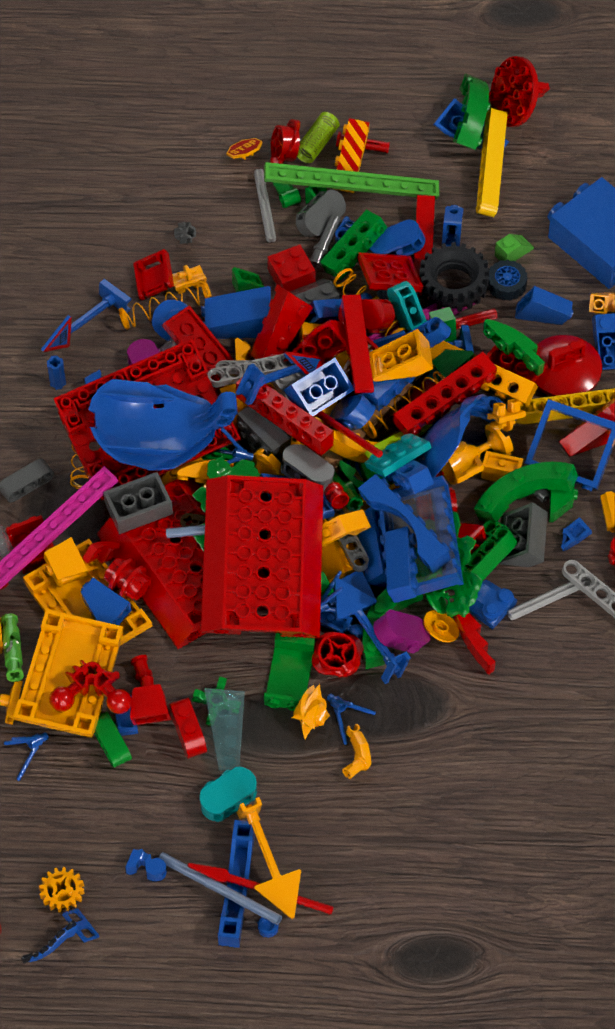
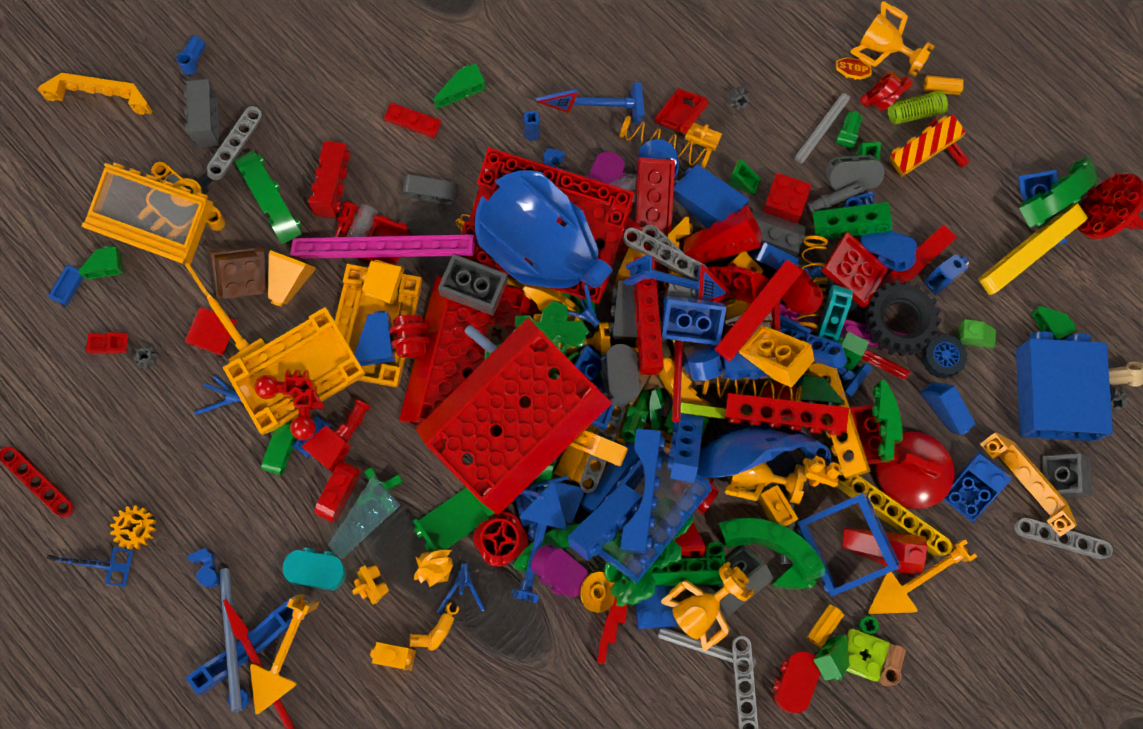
camera: 40 degrees right, 15 degrees up
(12, 647) = (277, 318): bright green piece -> none
(102, 551) = (417, 297): red slope -> none
(247, 109) = (887, 39): none -> light orange piece
(278, 768) = (366, 576): none -> light orange hips
(314, 110) = (945, 84): none -> light orange axle
(336, 495) = (620, 417): red wheel -> none
(346, 793) = (393, 656): none -> light orange torso
(350, 180) = (903, 167): bright green plate -> none
(398, 454) = (696, 431): teal plate -> none
(522, 568) = (700, 611): none -> light orange piece
(551, 196) = (1054, 322): none -> green slope
(574, 534) = (778, 614): blue slope -> none

